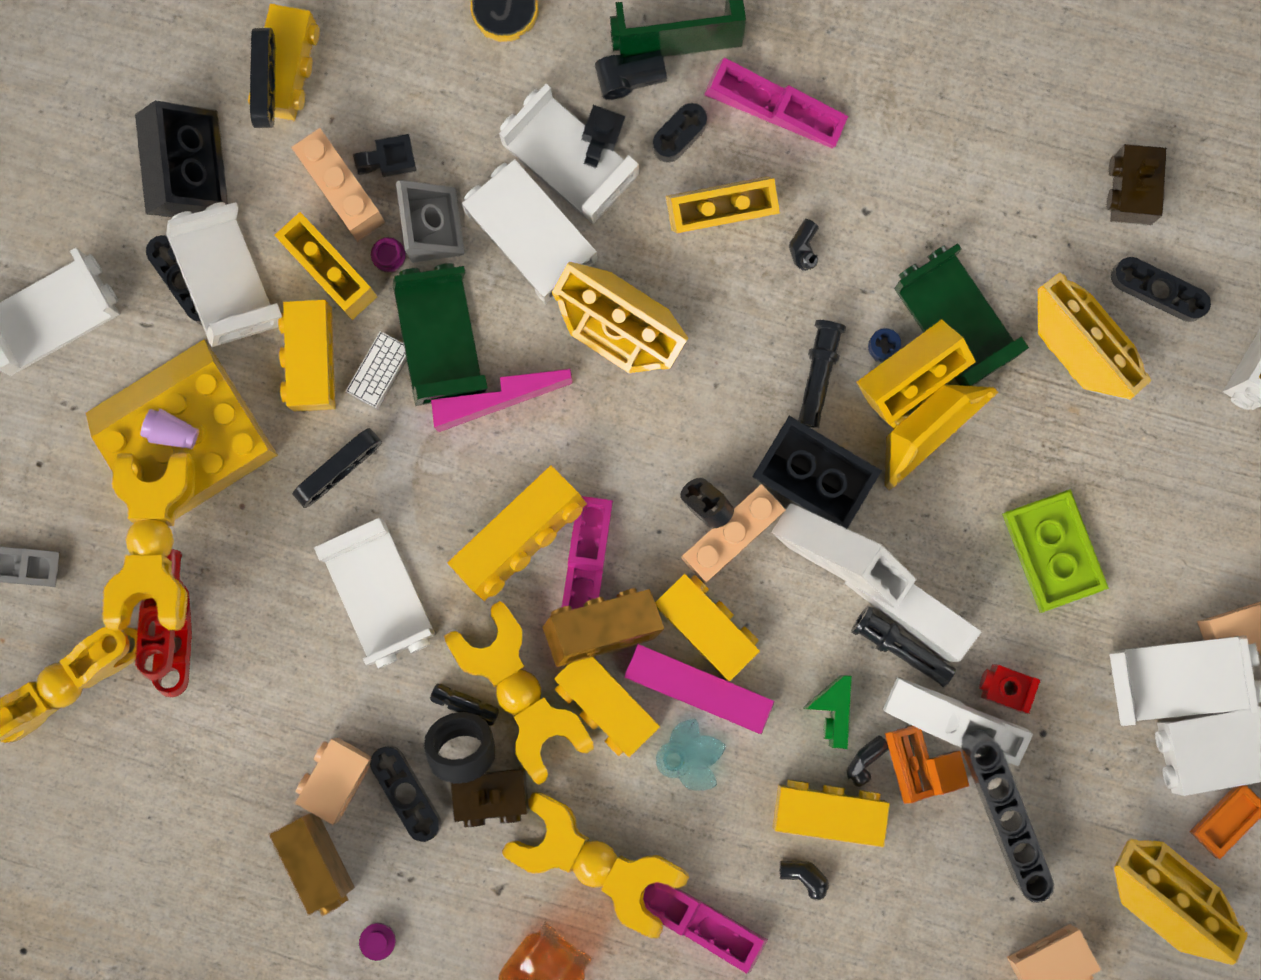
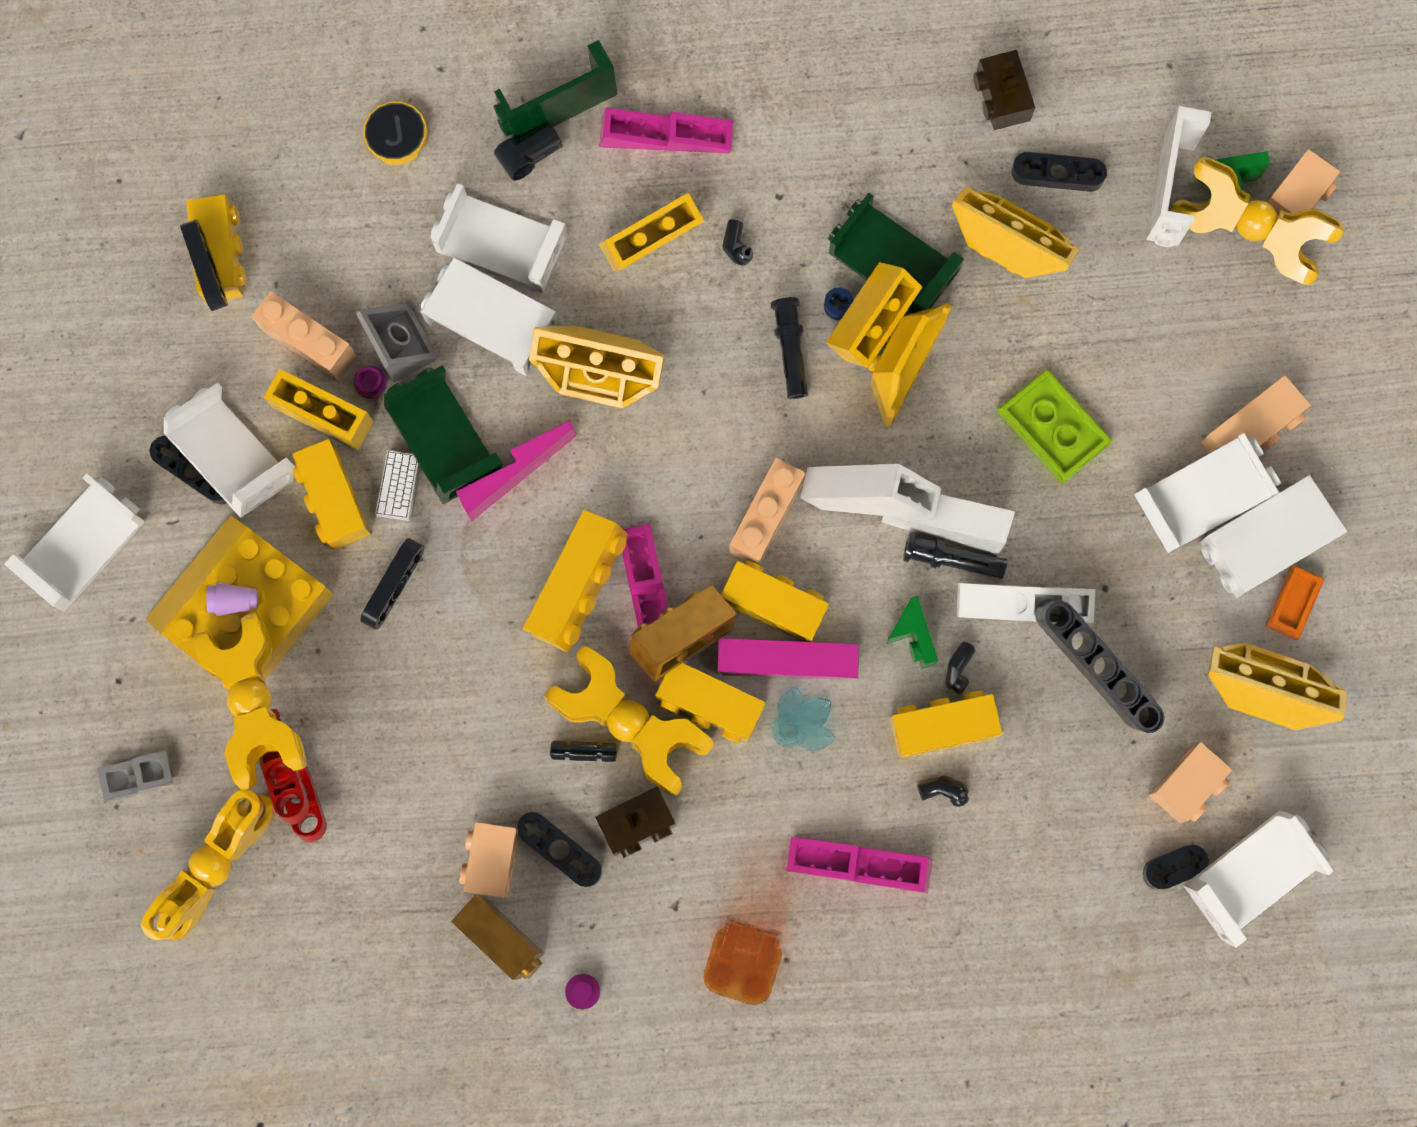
camera: 20 degrees left, 5 degrees down
(180, 158) = (151, 363): black slope -> none
(376, 592) = (467, 680): white panel -> none
(392, 155) = (342, 295): black plate -> none
(454, 726) = (602, 803): black tyre -> none
(595, 864) = (753, 846): yellow piece -> none
(601, 132) = (521, 209): black plate -> none
(674, 127) = (584, 183): black beam -> none
(710, 498) = (728, 489): black beam -> none
(816, 473) = (820, 430): black slope -> none
(907, 764) = (996, 657): orange tile -> none
(947, 773) = (1034, 651): orange tile -> none
(1024, 692) = (1049, 567): red brick -> none

